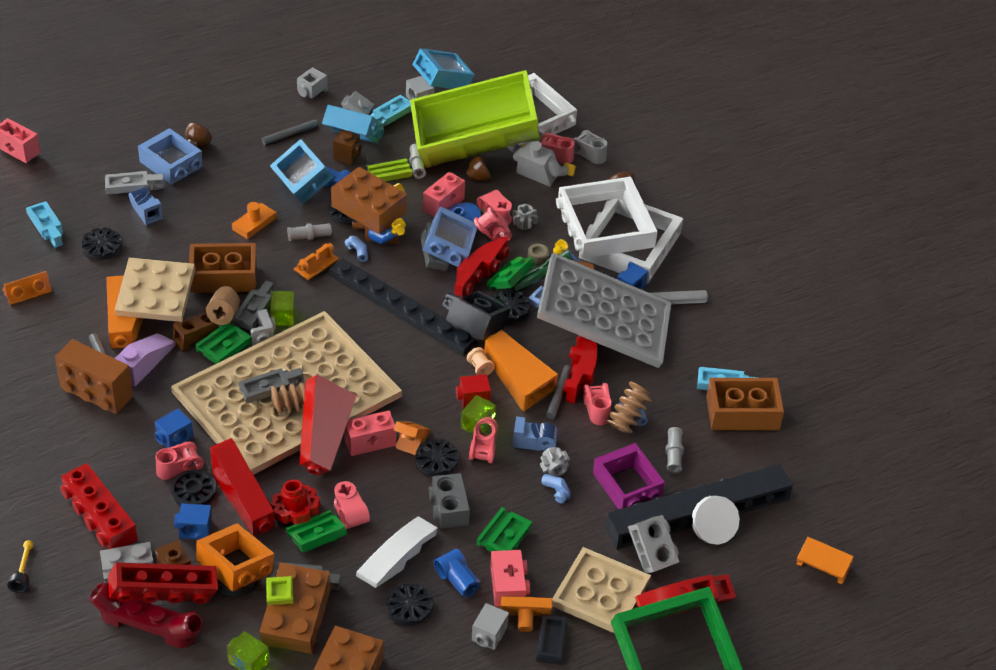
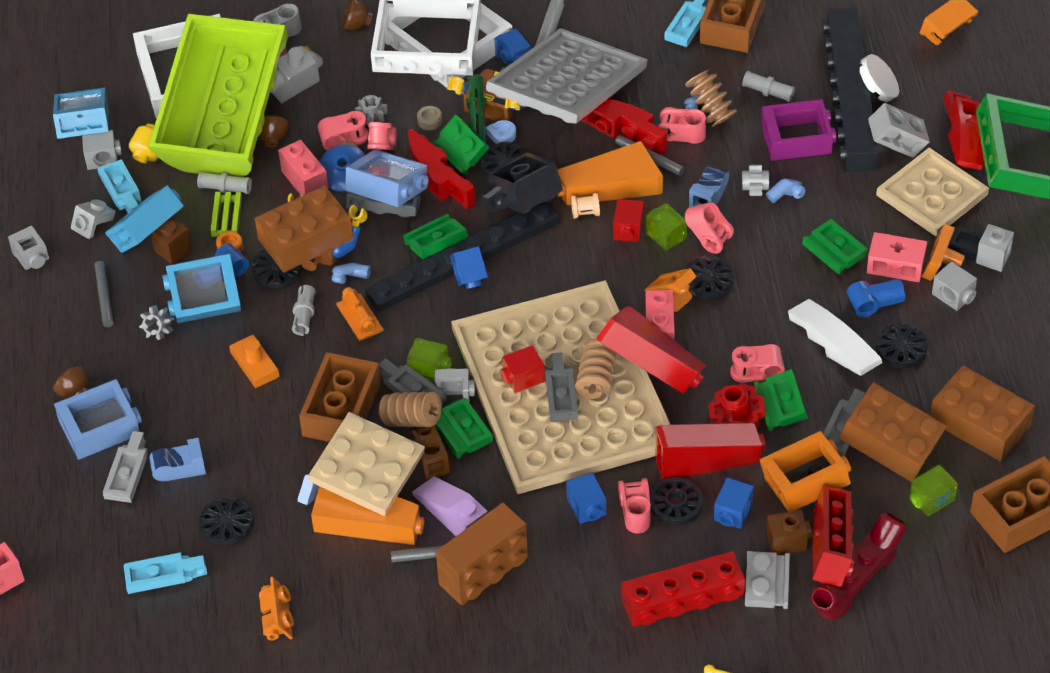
camera: 65 degrees left, 5 degrees up
(264, 159) = (149, 322): none -> light grey gear
(279, 590) = (888, 427): lime tile -> none
(281, 355) = (522, 369): none -> red brick
(380, 306) = (469, 267): none -> blue brick
(411, 284) = (435, 236): none -> green plate
(450, 501) = (778, 277): dark grey brick -> none
(539, 642) = (995, 247): none -> light grey brick

